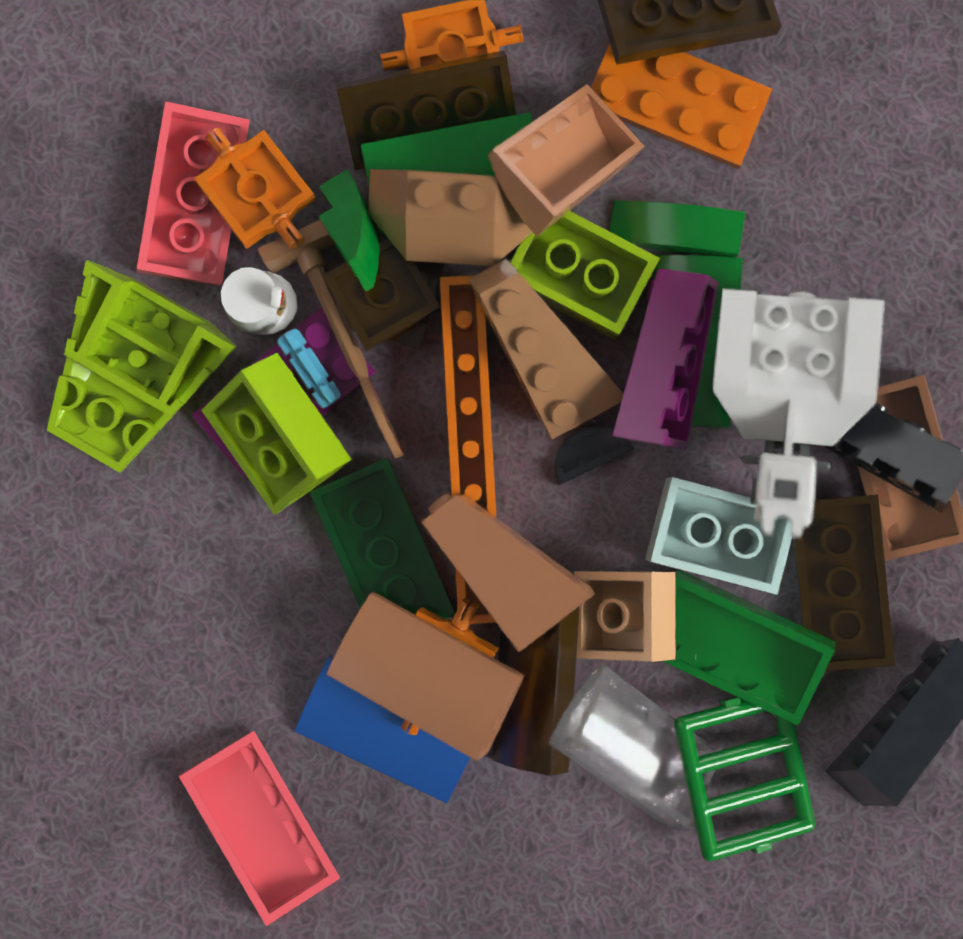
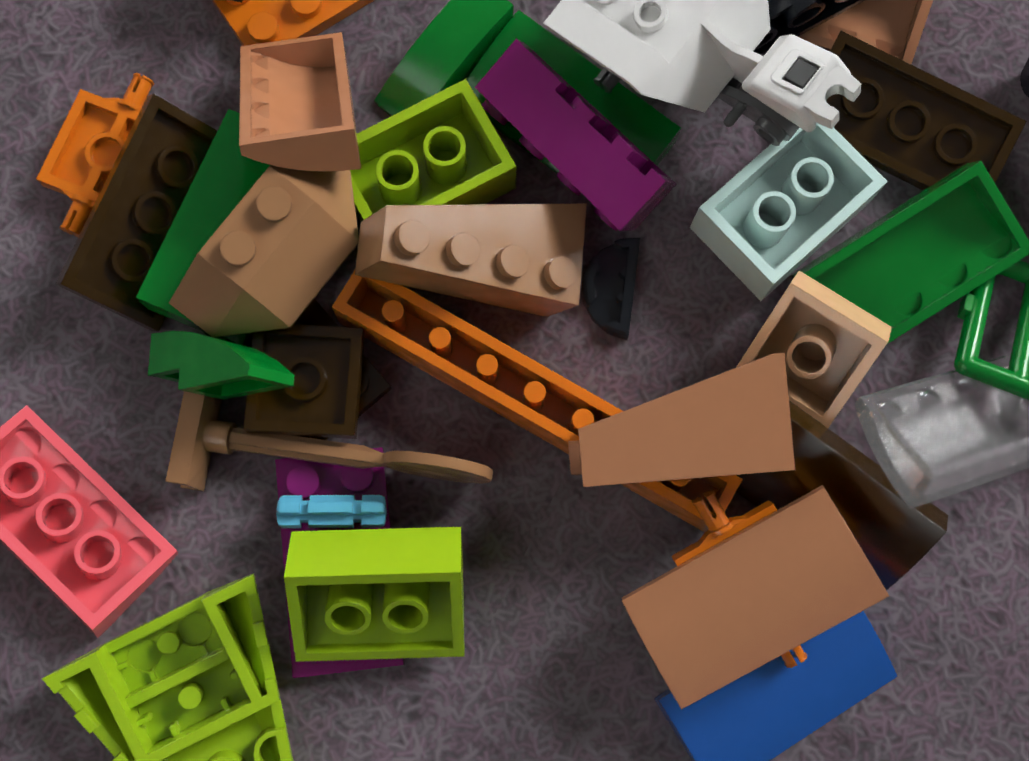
camera: 65 degrees left, 10 degrees down
(255, 189) = (101, 442): orange plate -> none
(258, 301) = (221, 522): white hat -> none
(380, 540) = (566, 560): dark green plate -> none

